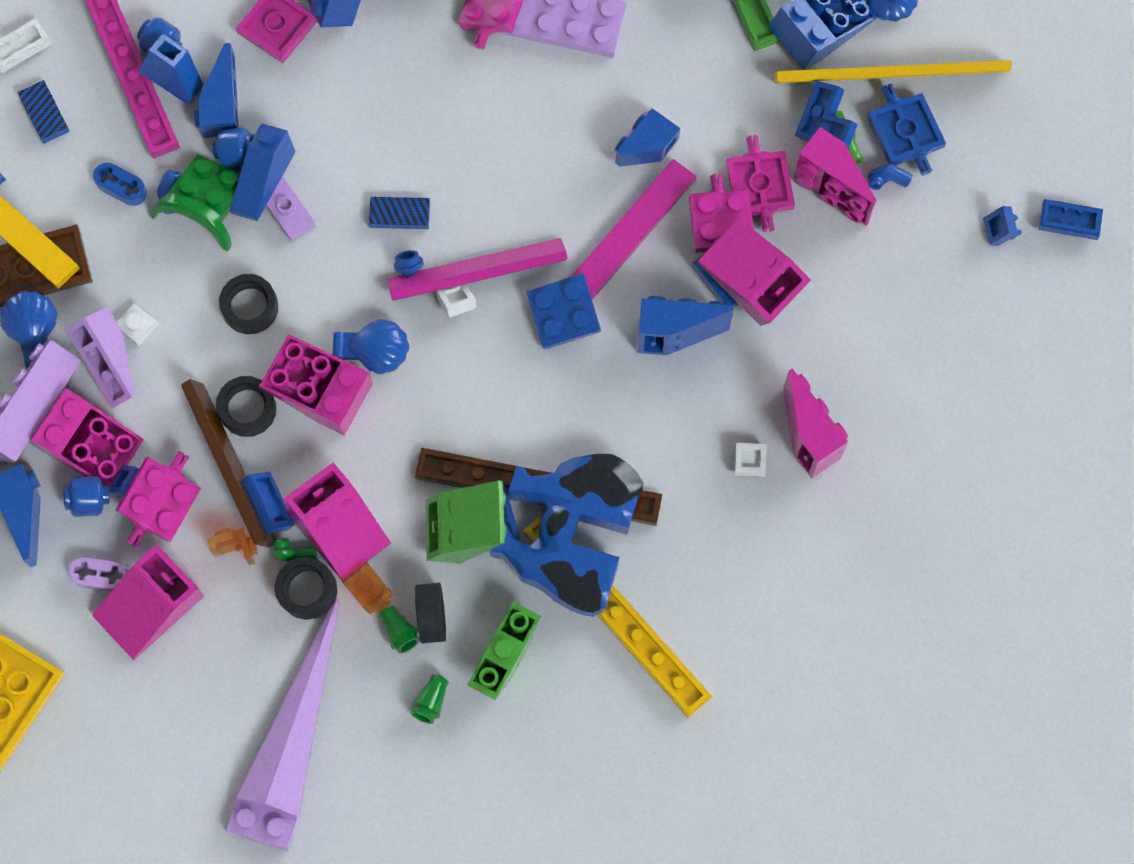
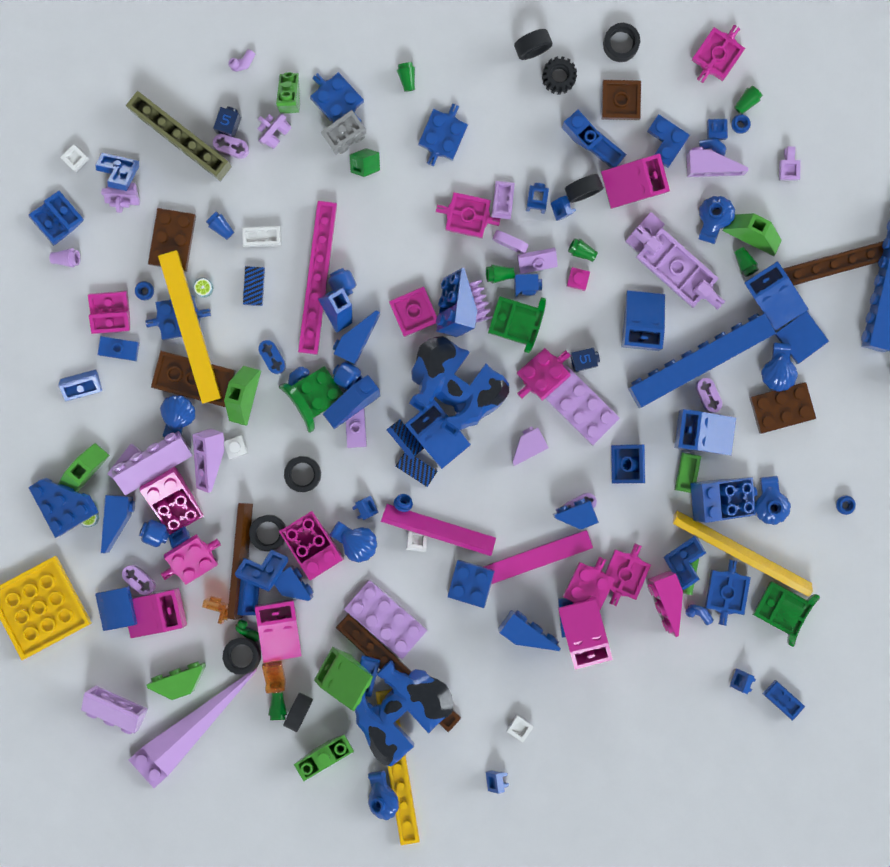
camera: 30 degrees right, 15 degrees up
(88, 629) = (116, 608): none -> blue slope
(105, 251) = (241, 394): none -> bright green slope
(163, 769) = (113, 709): none -> lavender slope
(236, 677) = (179, 682): none -> bright green slope
(269, 454) = (262, 575): none -> blue plate
(315, 451) = (291, 584): none -> blue slope
(354, 73) = (435, 373): none -> blue animal
(361, 182) = (405, 439): none -> blue tile
(362, 296) = (366, 508): none -> blue tile
(399, 149) = (434, 438): none -> blue slope
(429, 701) = (272, 754): green cone -> none
(478, 427) = (385, 619): none -> lavender plate
(531, 97) = (529, 445): none -> lavender slope
(623, 666) = (382, 798): none -> blue animal
(674, 47) = (628, 463): none -> blue slope
(763, 548) = (495, 781): none -> blue tile
(814, 435) = (559, 737): dark pink slope -> none
(992, 107) = (784, 610): none -> green piece

